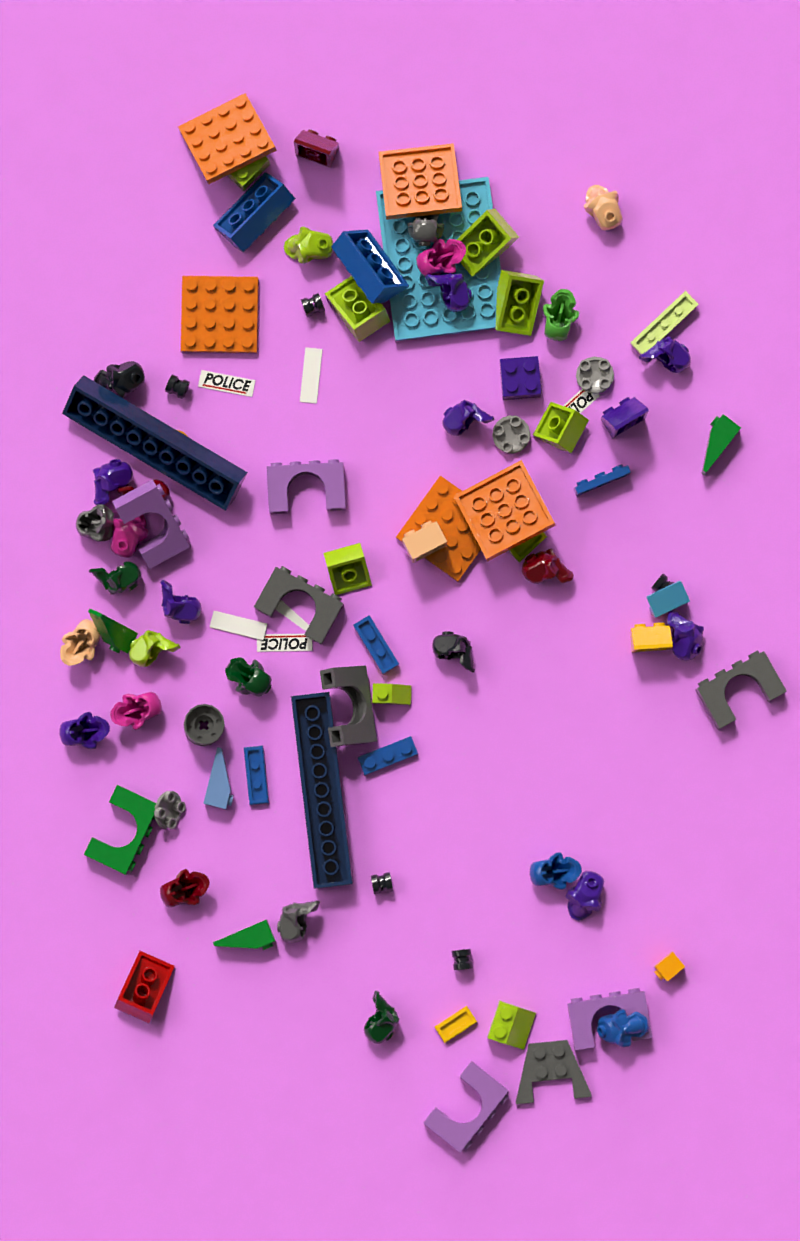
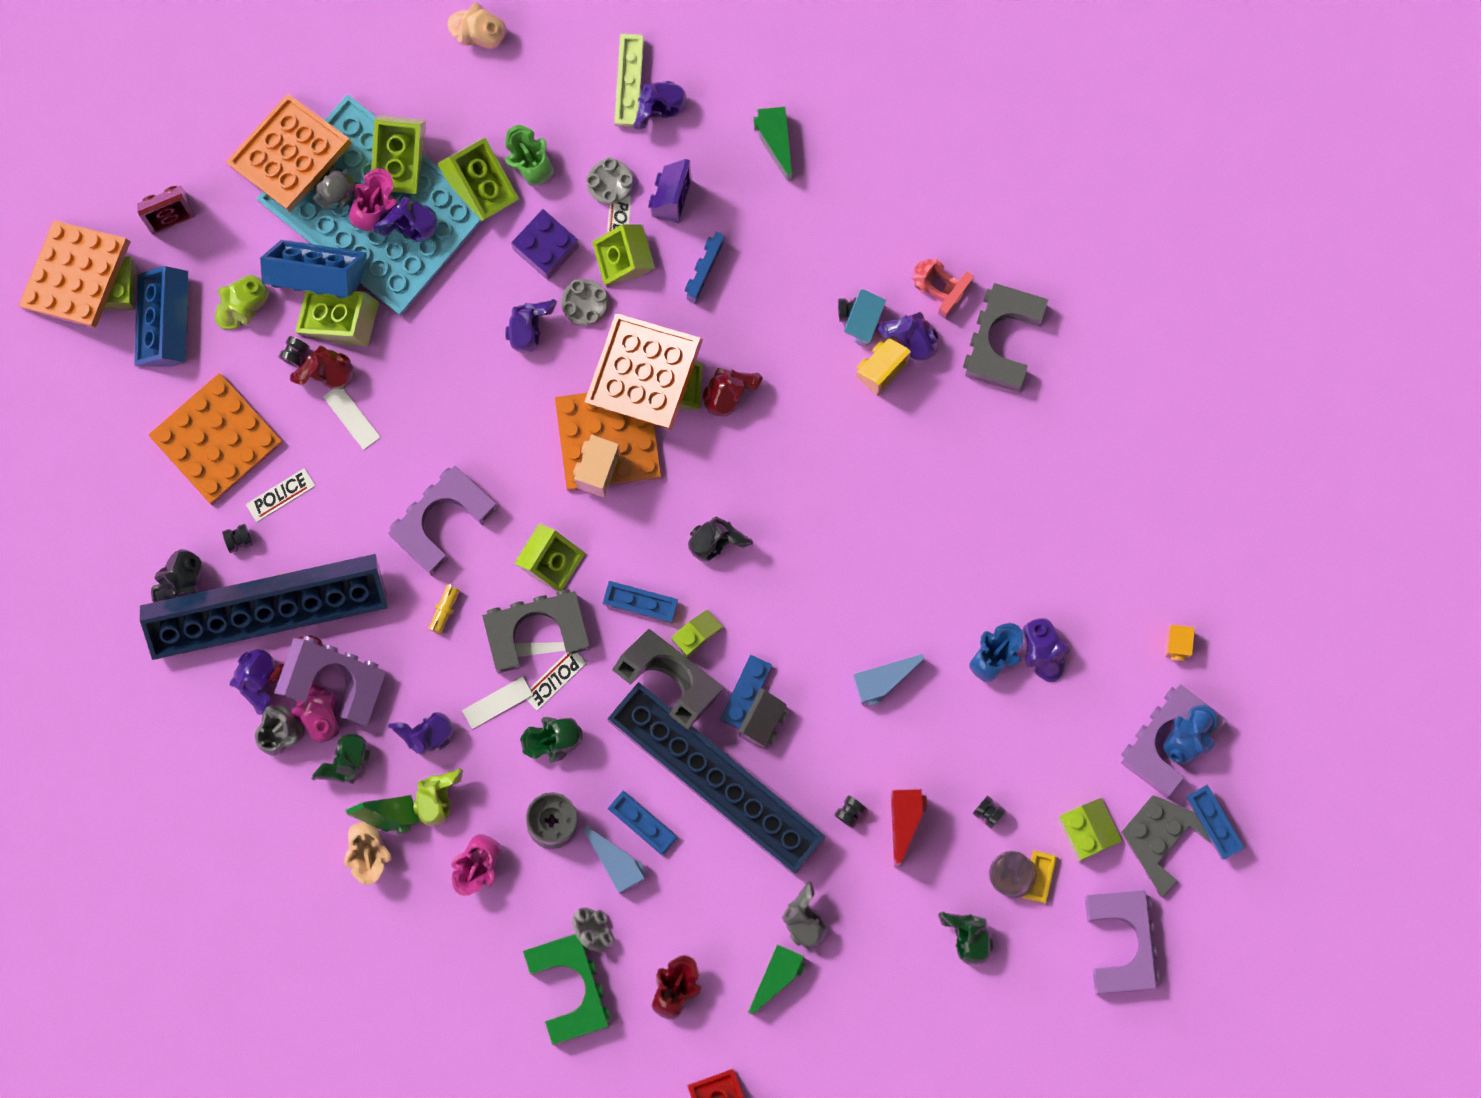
camera: 45 degrees left, 5 degrees down
(84, 731) = (445, 930): dark purple head -> none
(258, 541) = (444, 609): none -> yellow pin
(321, 332) = (325, 366): none -> dark red head
(381, 781) = (763, 719): none -> dark grey slope
(411, 916) = (906, 813): none -> red slope
(441, 1008) = (1012, 874): none -> clear purple head
(470, 823) = (880, 681): none -> medium blue slope
(587, 1090) = (1214, 822): none -> blue plate
(729, 606) = (927, 271): none -> coral tile

